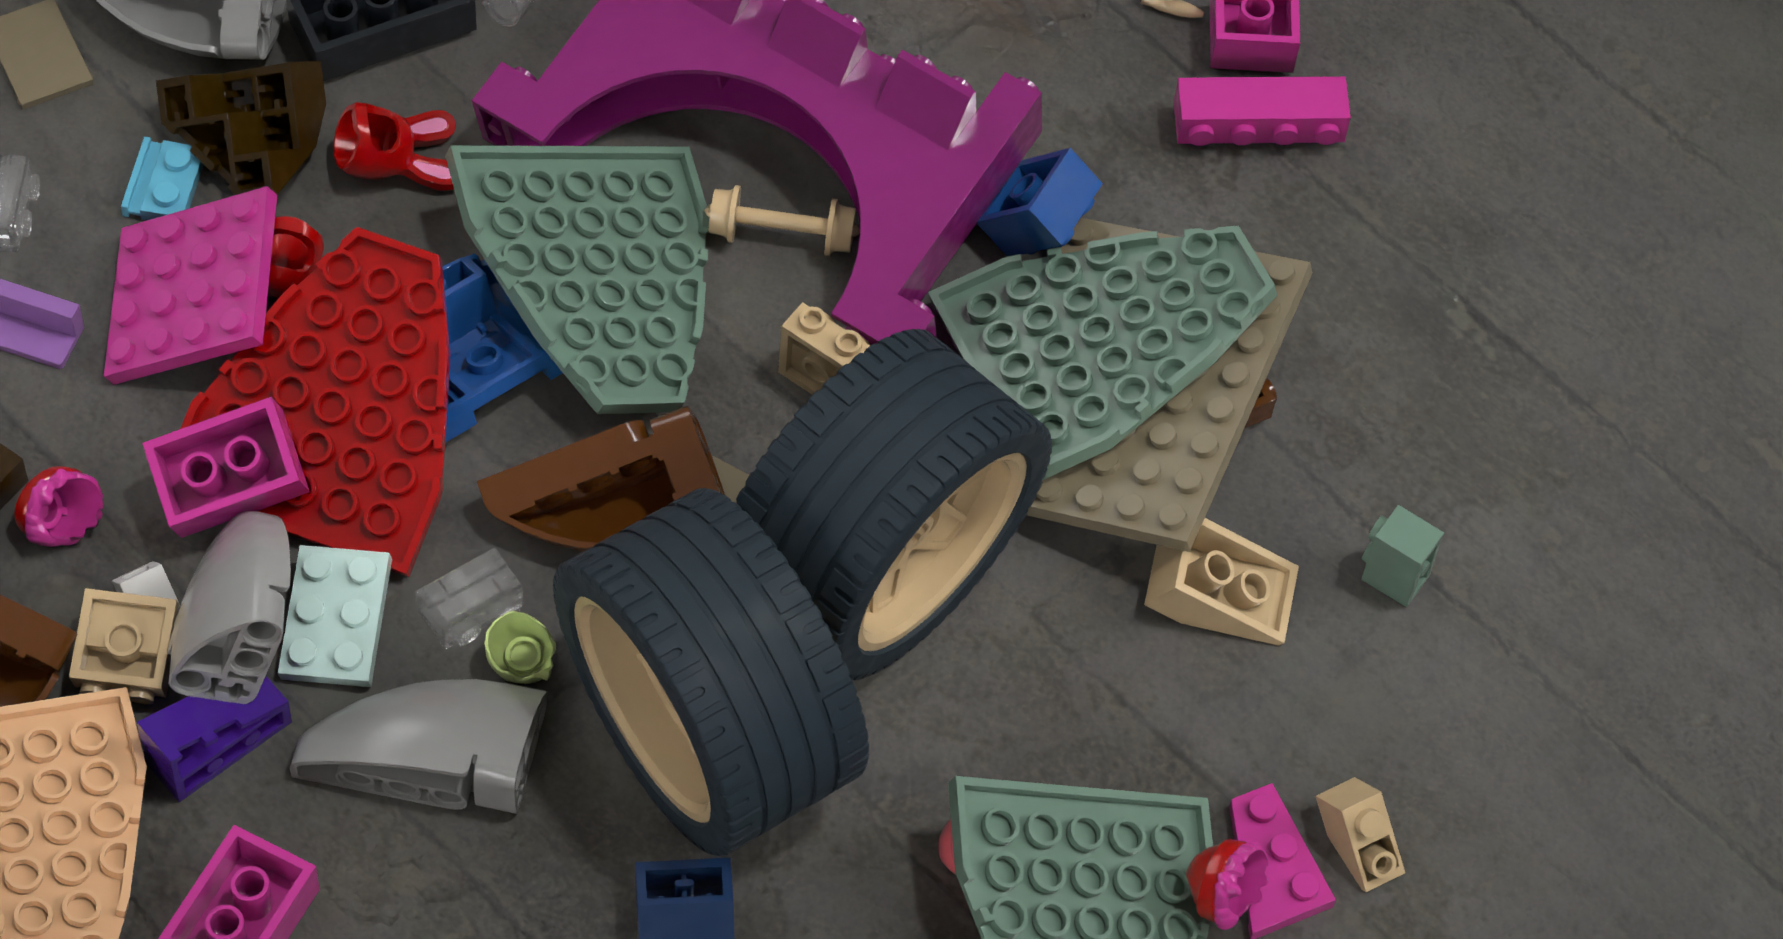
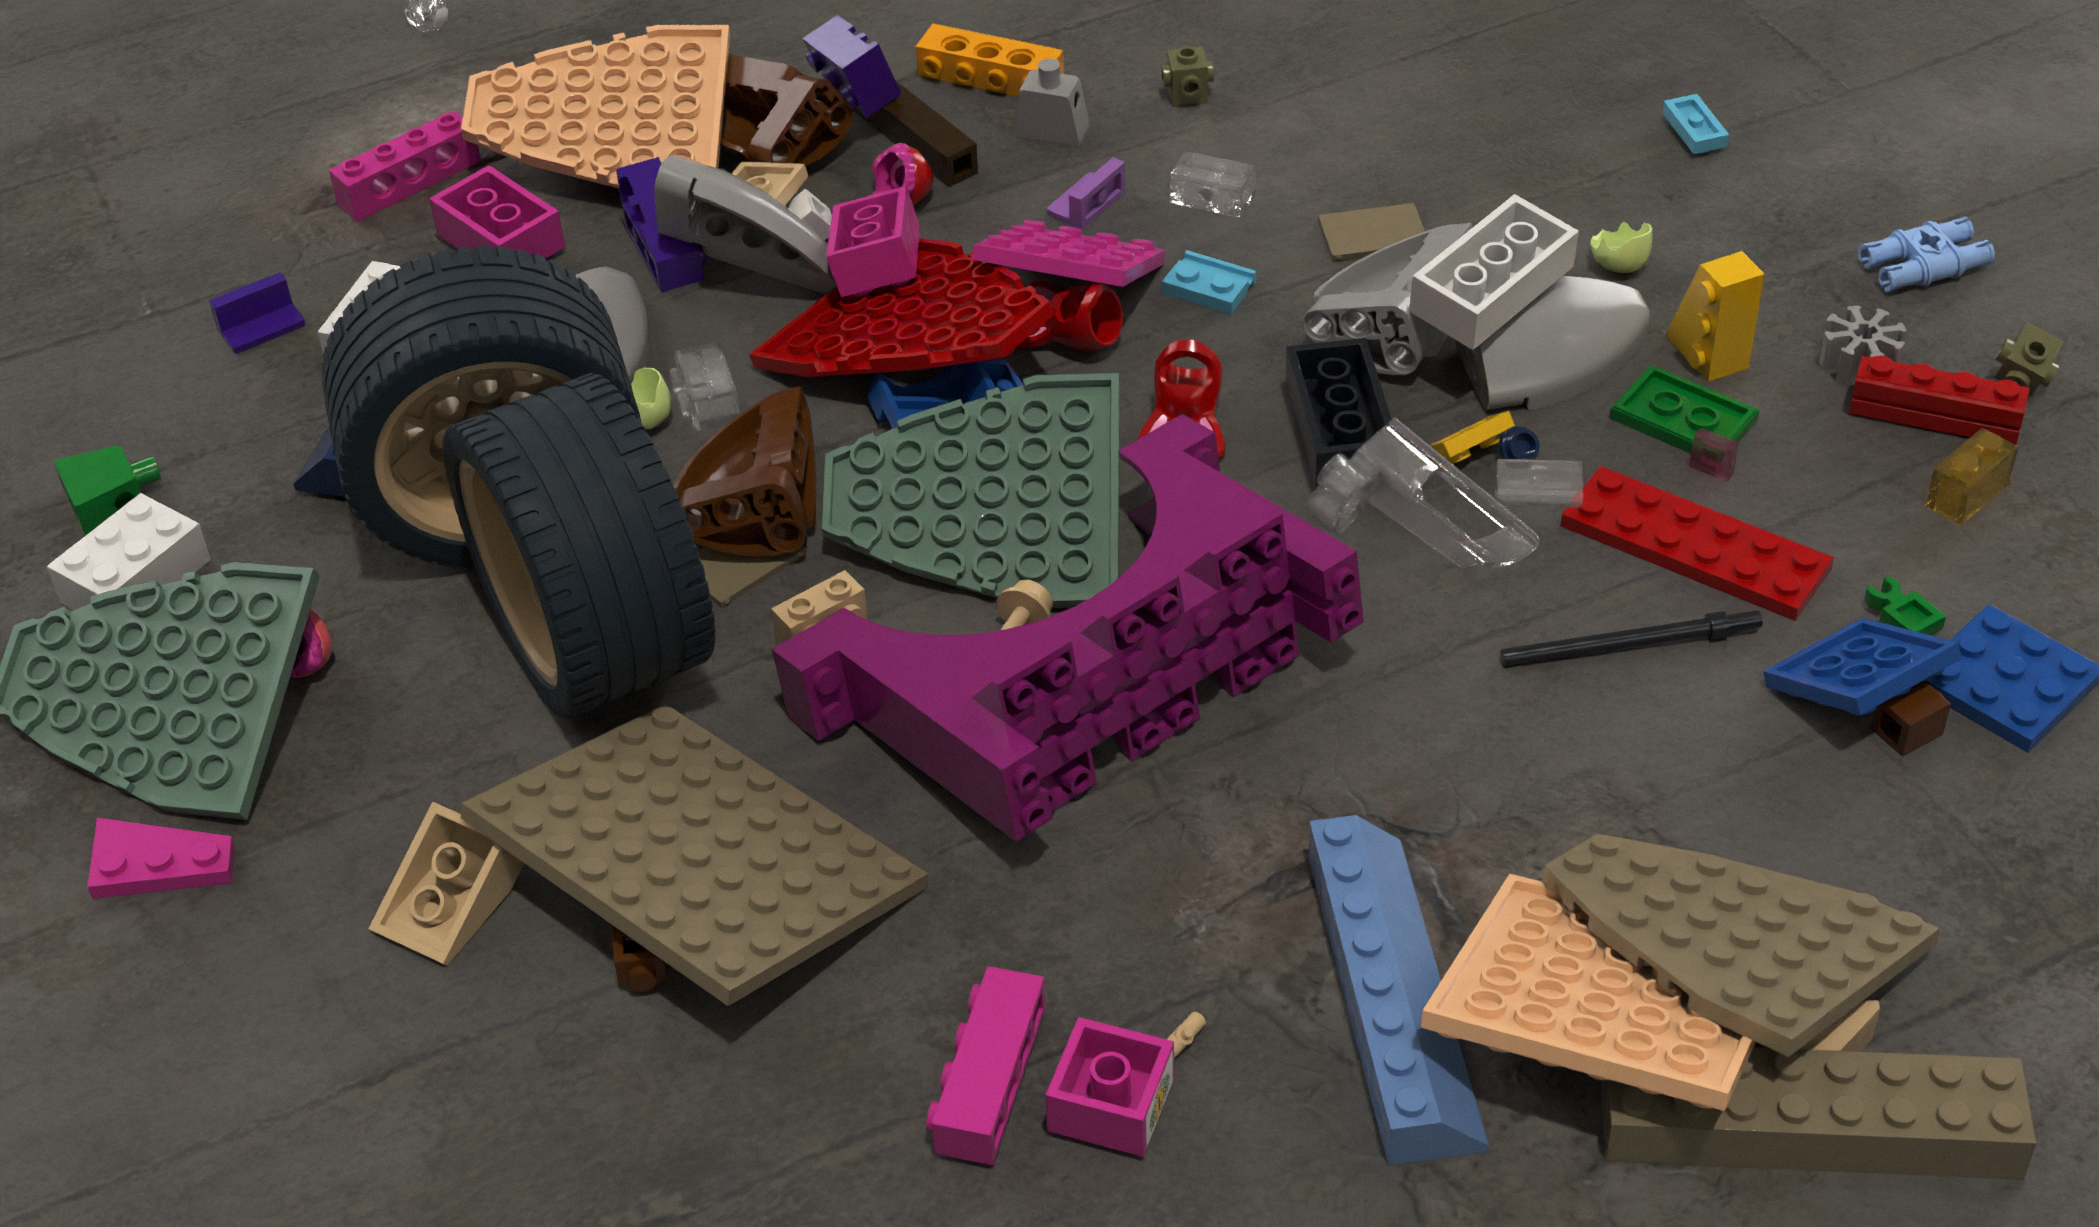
camera: 115 degrees right, 15 degrees down
(248, 122) = (1242, 319): dark brown brick -> none
(335, 616) = (731, 312): light aqua plate -> none
(1040, 203) = (928, 823): blue brick -> none
(1105, 330) = (740, 818): sand green wing -> none
(1227, 880) = (136, 781): hair -> none
(1361, 832) = (135, 917): tan slope -> none
(1400, 554) = (383, 1017): sand green brick -> none

